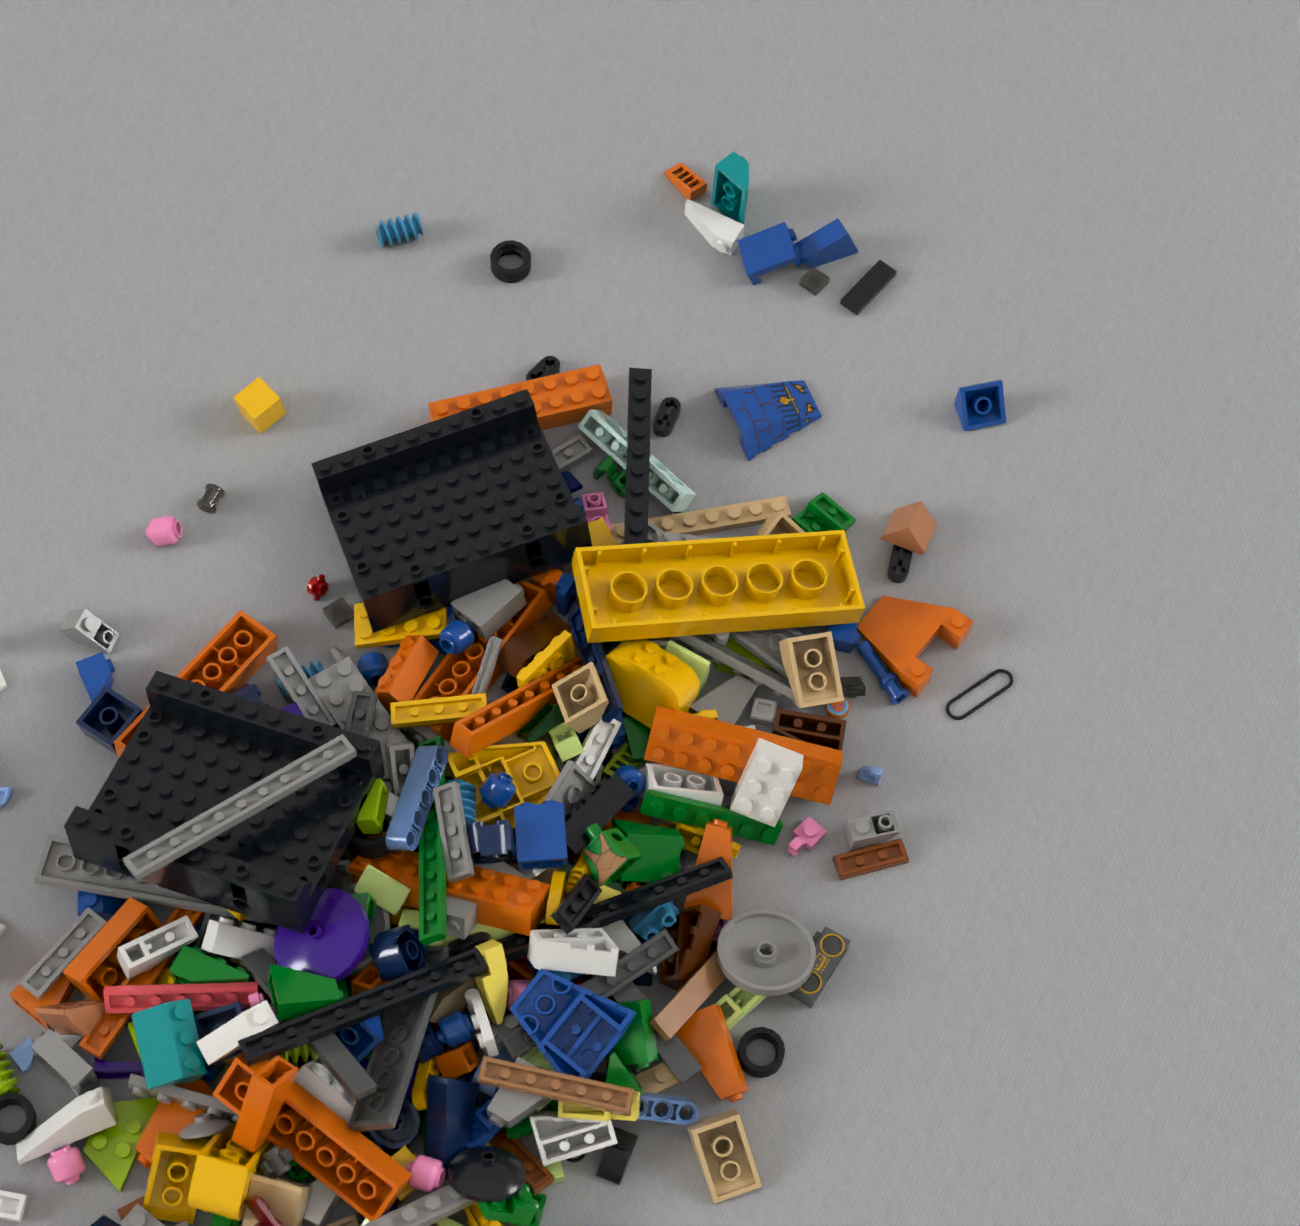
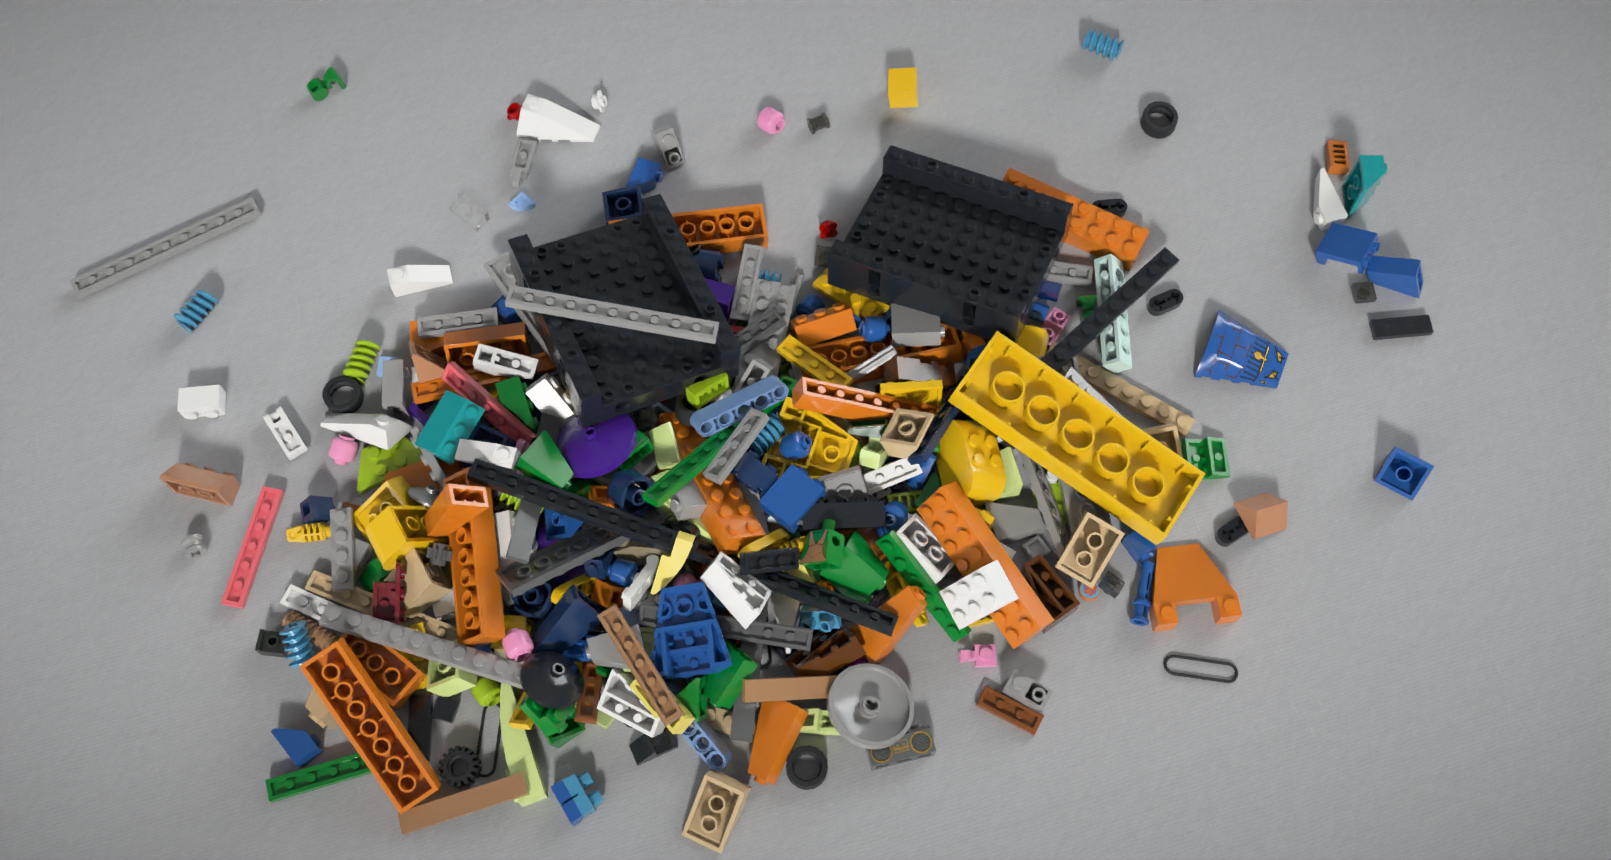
camera: 50 degrees right, 5 degrees up
(870, 774) = (1065, 654): light blue tile -> none

